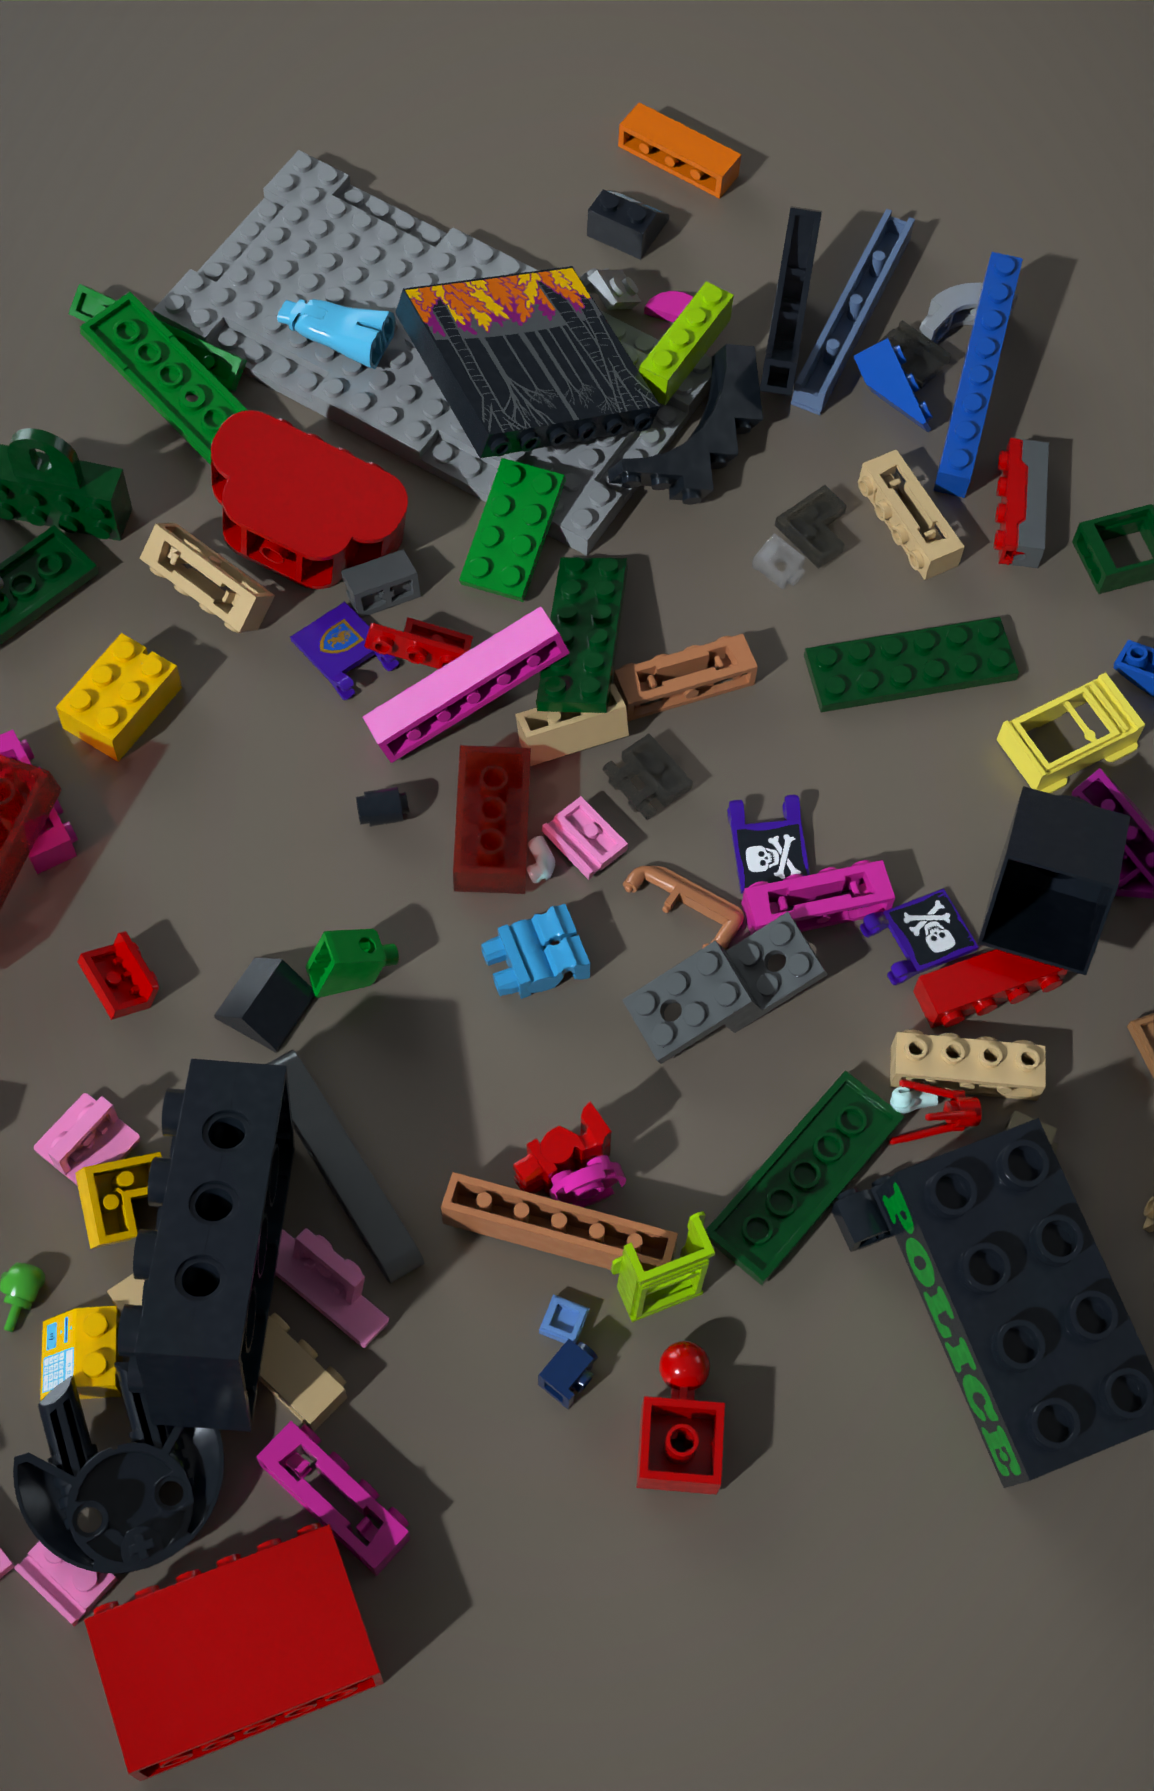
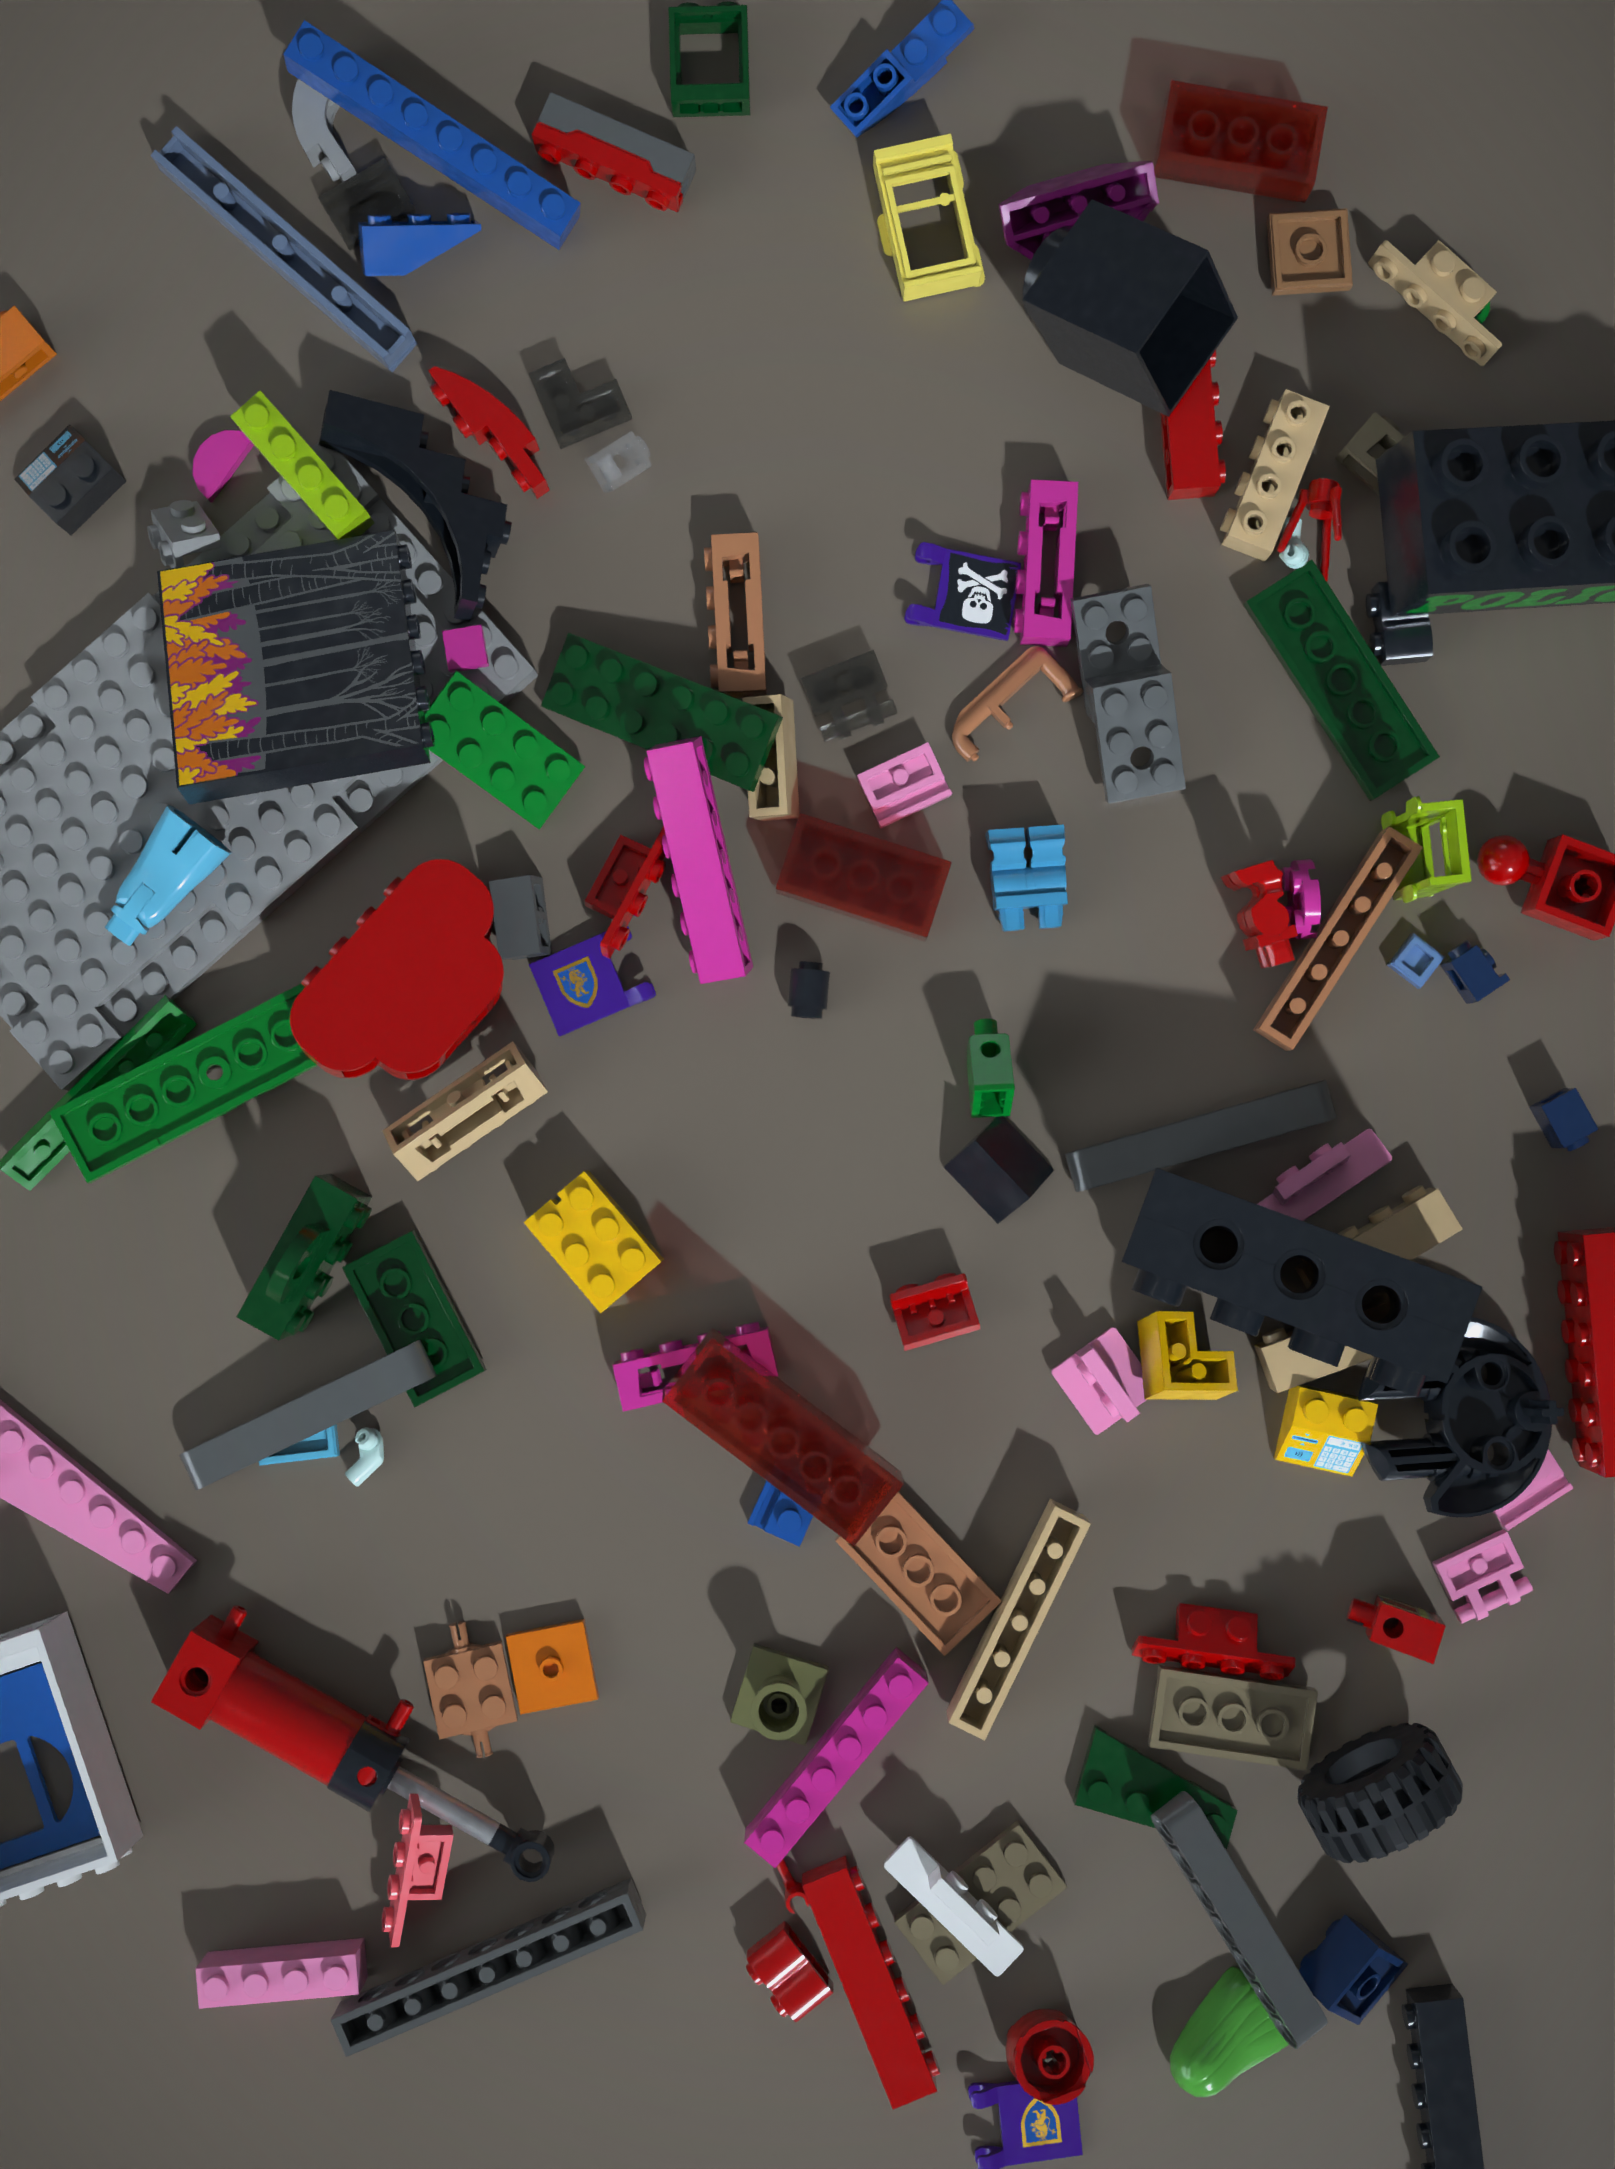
camera: 70 degrees left, 25 degrees up
(21, 1289) = (1238, 1474): bright green piece -> none
(286, 1451) = (1583, 1188): dark pink brick -> none
(448, 1503) = (1564, 1119): none -> dark blue brick
(544, 860) = (918, 835): arm -> none
(586, 483) = (465, 648): none -> dark pink tile
(773, 474) = (487, 417): none -> red slope
(790, 301) = (295, 341): black arch -> none
(910, 514) = (540, 303): tan brick -> none
(910, 664) = (785, 360): dark green plate -> none
(926, 932) = (1109, 462): flag -> none

